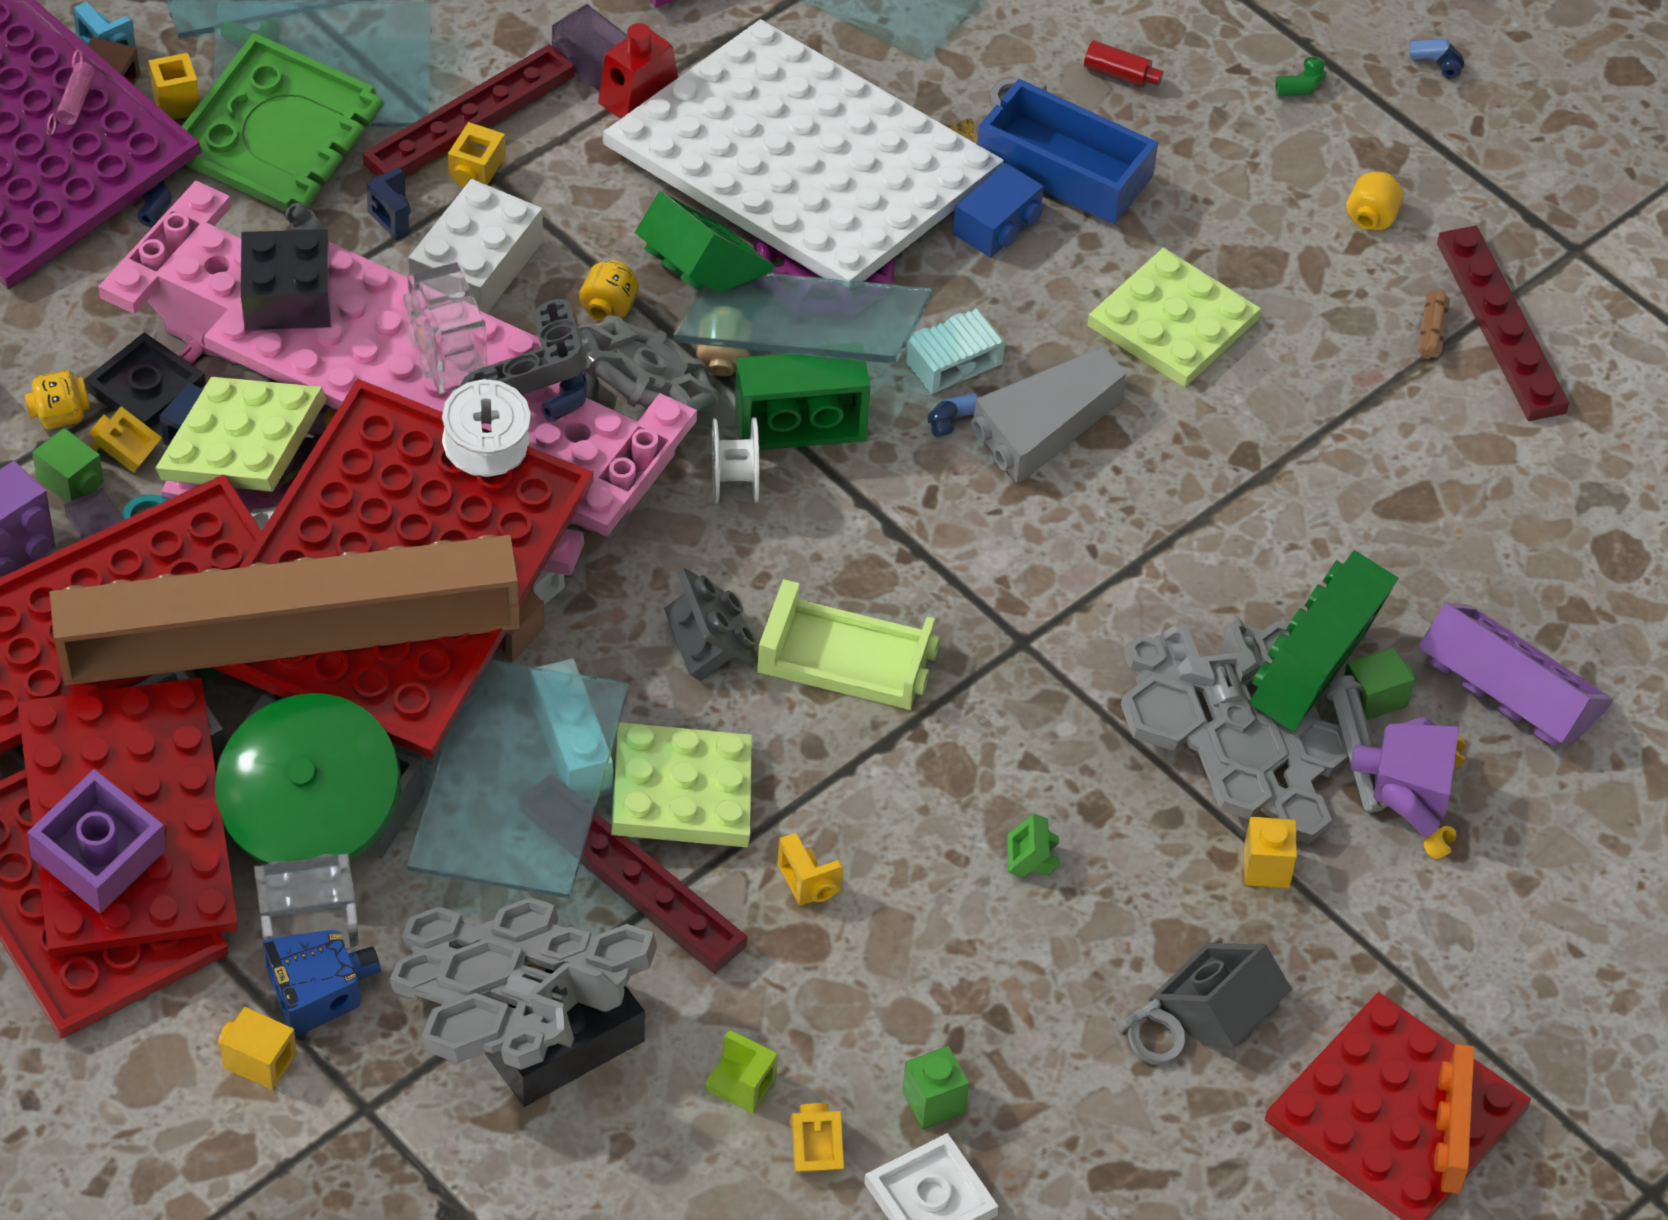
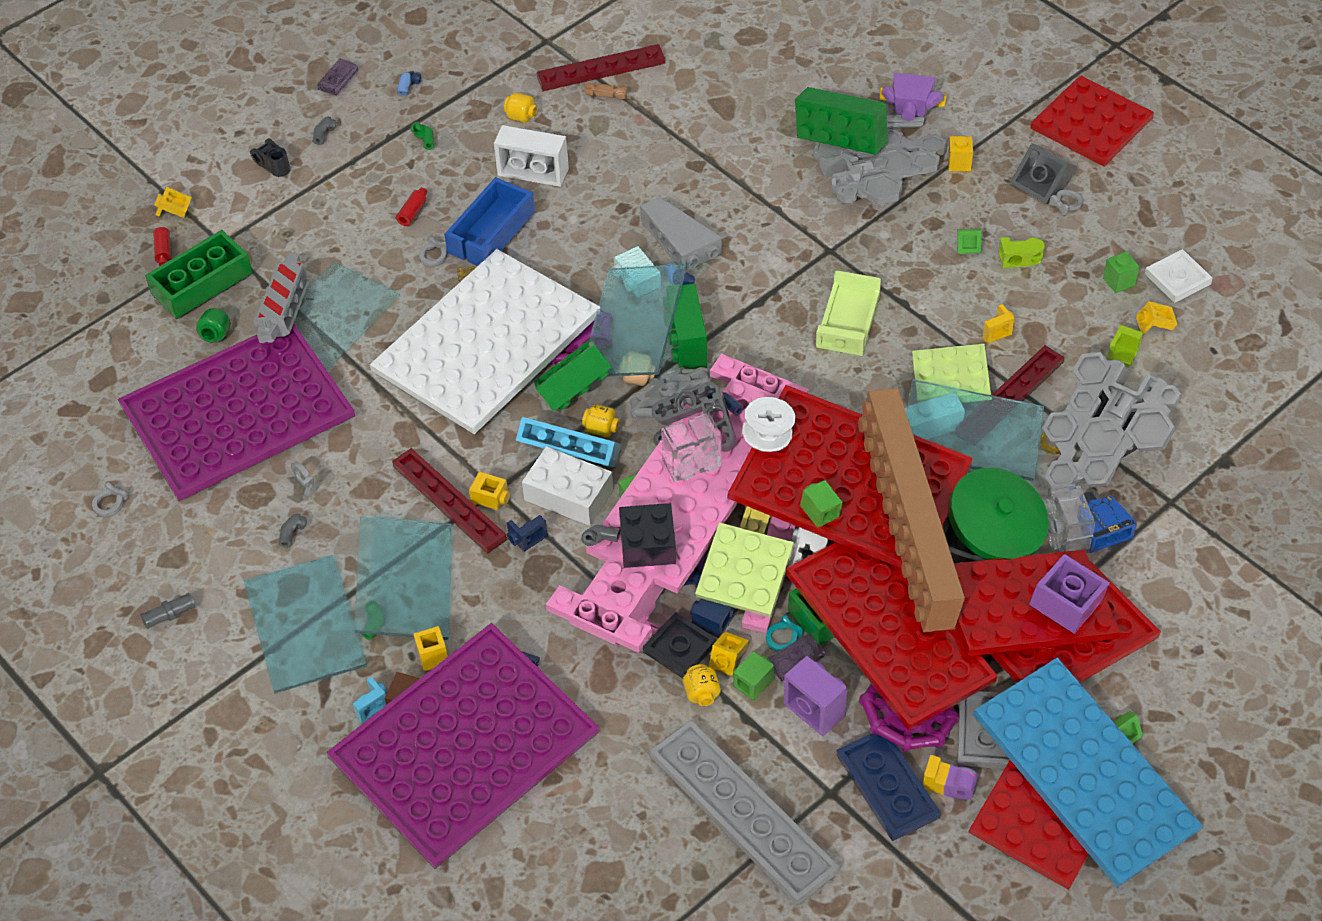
camera: 85 degrees left, 0 degrees up
(76, 70) = (465, 697): bright pink piece -> none
(257, 1047) = (1152, 542): yellow brick -> none
(279, 123) = (461, 590): bright green hinge -> none
(314, 493) = (821, 503): none -> bright green brick
(561, 243) = (568, 442): none -> medium azure brick
(585, 40) = (395, 439): clear purple brick -> none
(636, 70) = (422, 414): red torso -> none
(709, 626) = (845, 371): dark grey bracket -> none
(735, 460) = (735, 344): white piece -> none
(998, 210) = (531, 252): blue brick -> none
(998, 939) = (1020, 252): none -> lime leg
(1173, 317) = (602, 189): yellowish green plate -> none
(1229, 201) = (531, 155): none -> white brick
(1455, 1118) = (1108, 89): orange plate -> none
(1513, 673) = (840, 65): medium lavender slope -> none

